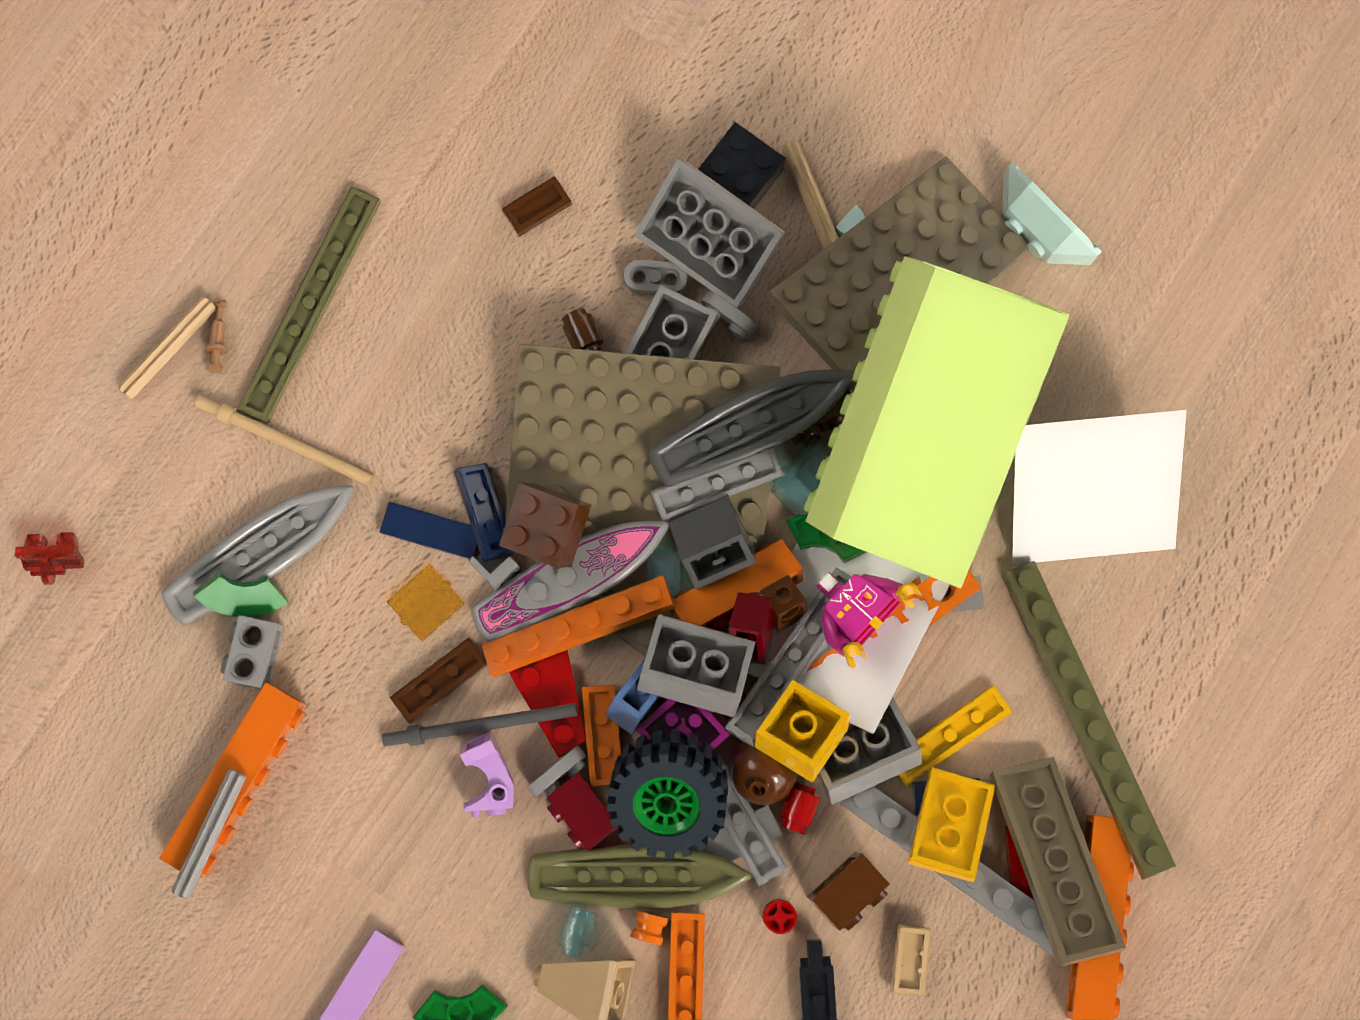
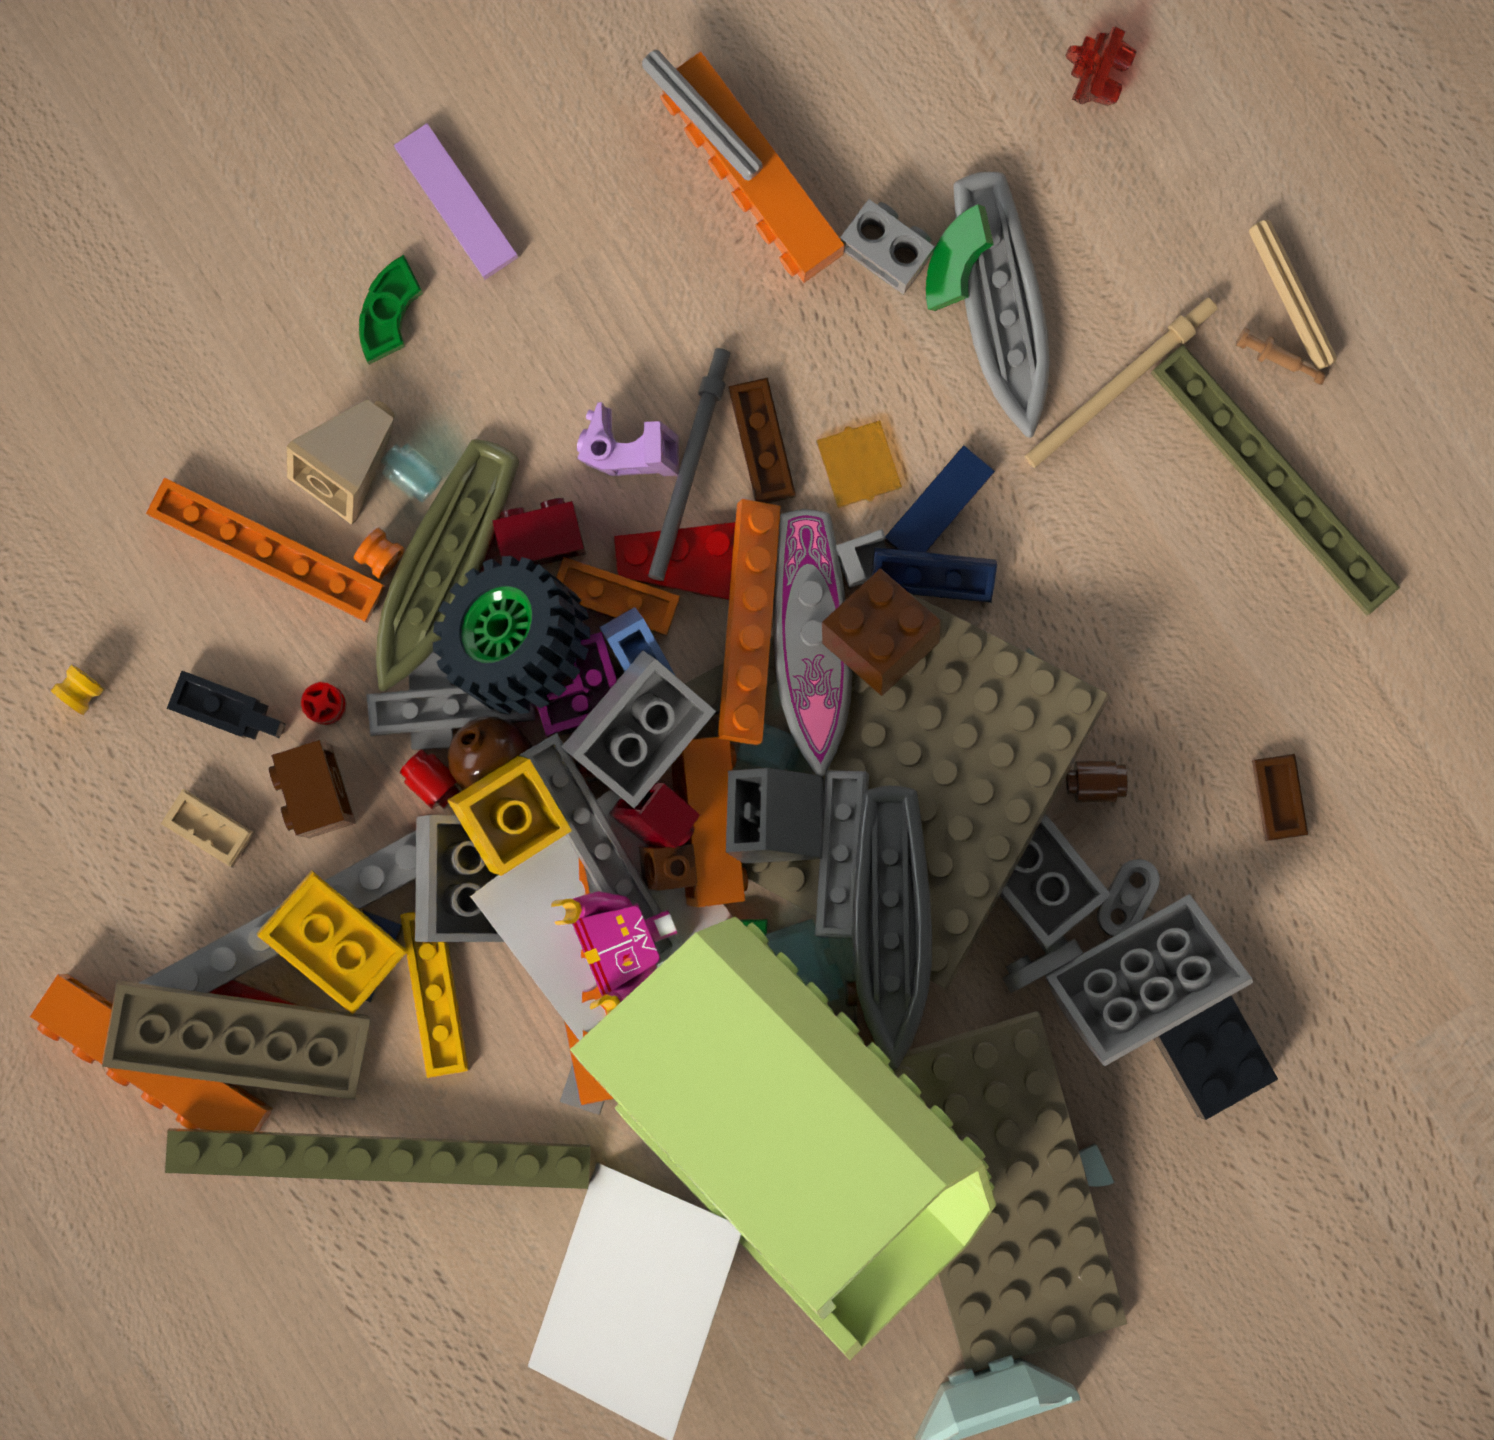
camera: 115 degrees right, 5 degrees up
(569, 764) = (589, 511): light grey plate -> none
(810, 193) = (1150, 1134): tan axle -> none

